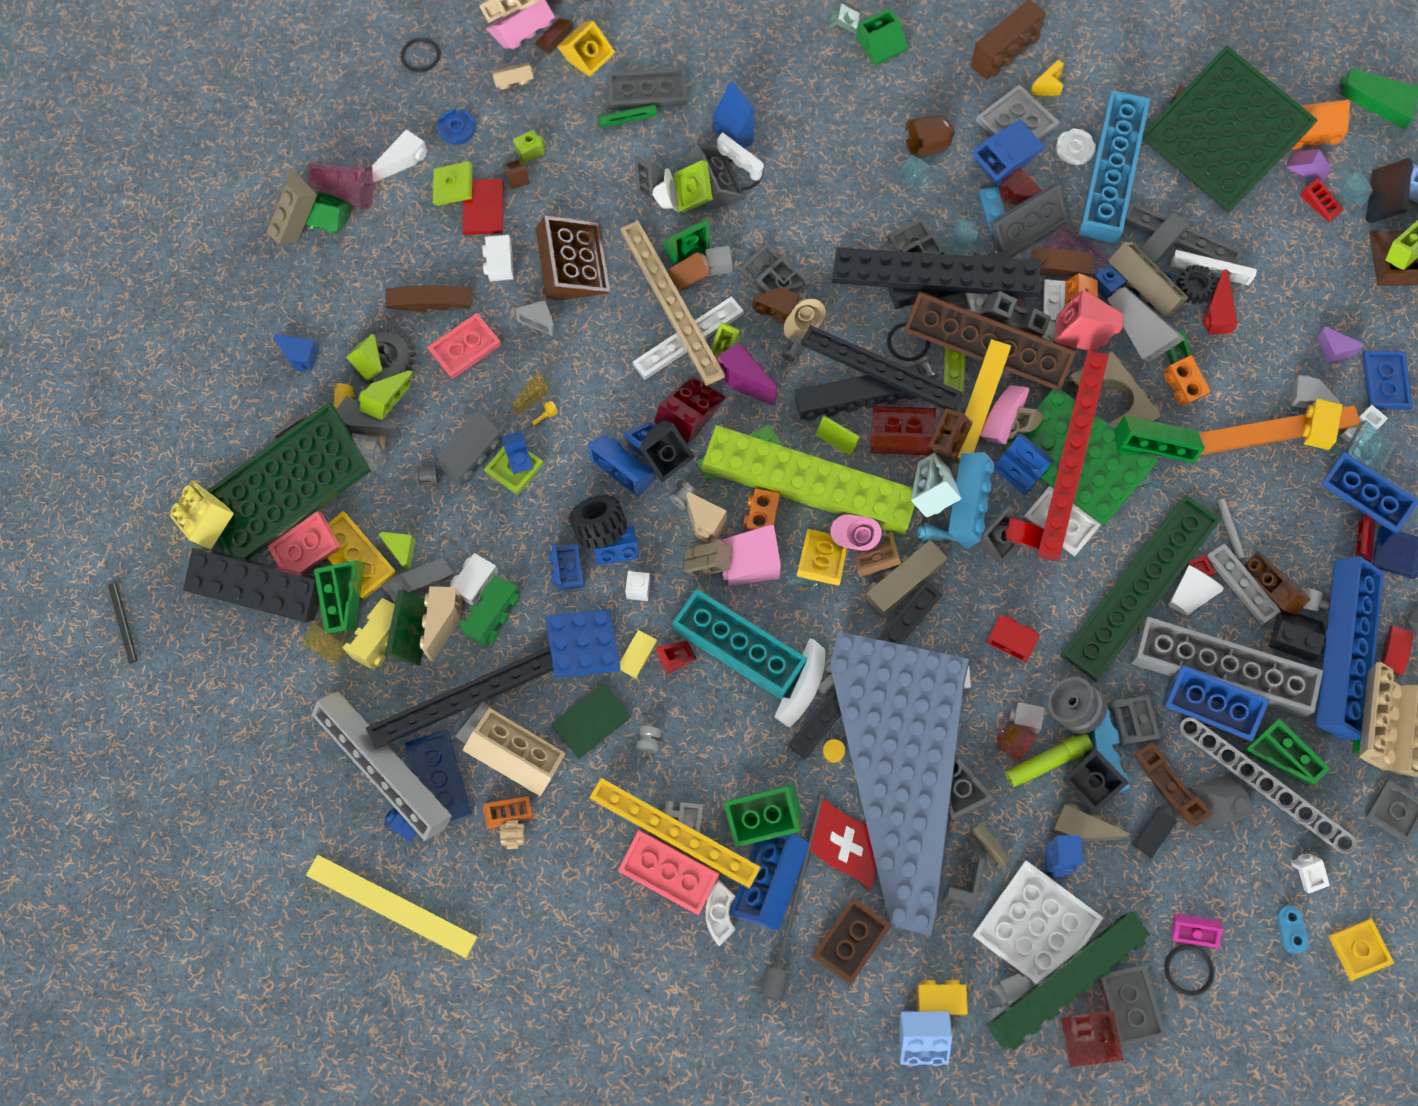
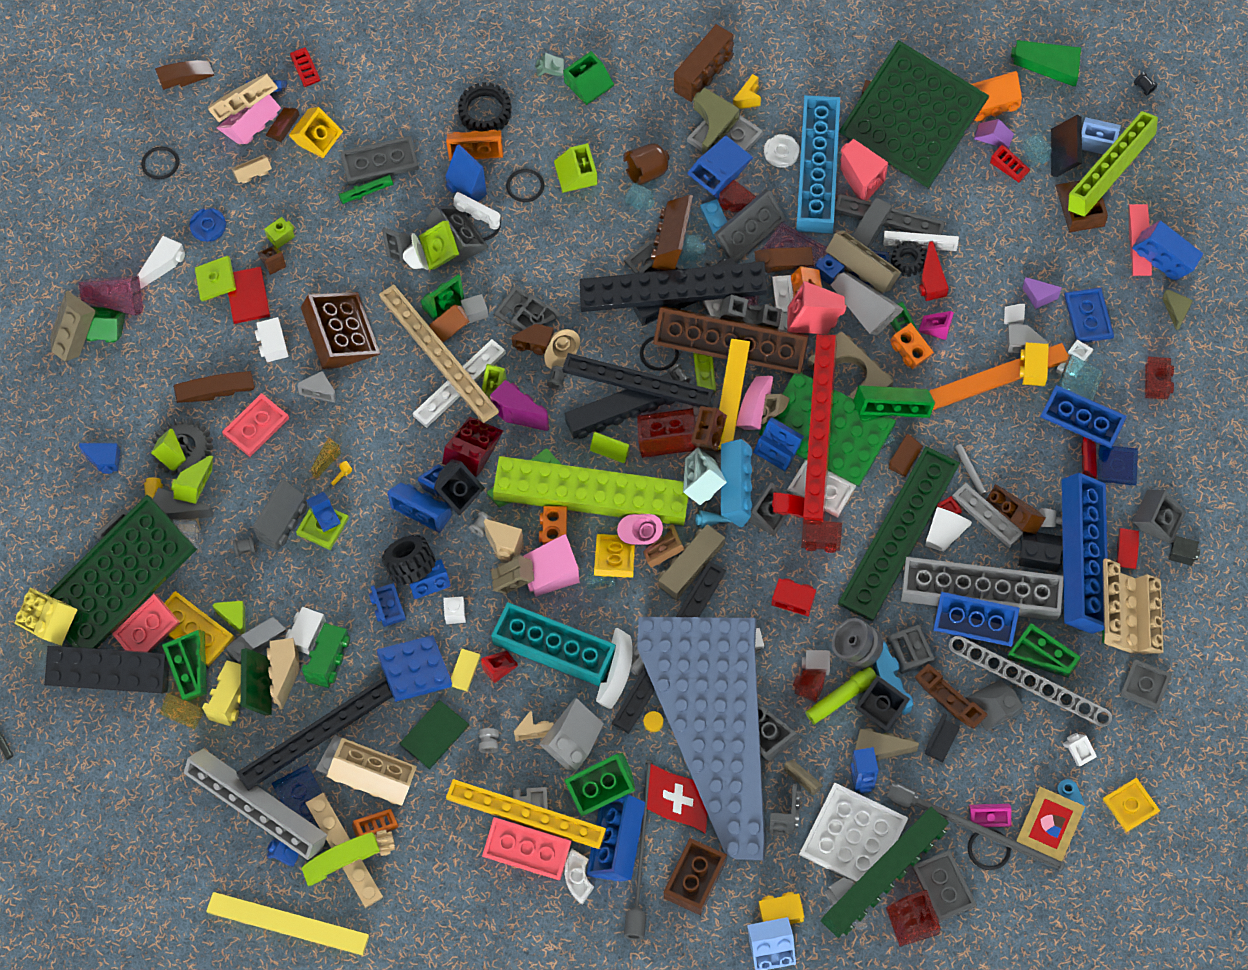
camera: 10 degrees left, 5 degrees down
(462, 843) = (339, 856): none -> lime slope
(468, 835) = (355, 871): none -> tan plate
(693, 736) = (528, 730): none -> tan slope
(742, 752) = (572, 736): none -> light grey slope
(756, 88) = (478, 144): none -> orange slope
(767, 70) = (479, 91): none -> black tyre
(796, 124) = (522, 171): none -> black tyre
(853, 129) = (576, 168): none -> lime slope
(944, 214) = (671, 233): none -> reddish brown slope
(1014, 96) = (718, 115): none -> olive arch
(1054, 574) = (821, 535): none -> clear red brick
(1161, 501) = (905, 455): none -> reddish brown slope
(1162, 179) = (862, 169): none -> coral slope
(1218, 361) = (937, 324): none -> dark pink slope
(1255, 967) = (1043, 834): none -> flag
(1305, 365) = (1014, 314): none -> white slope

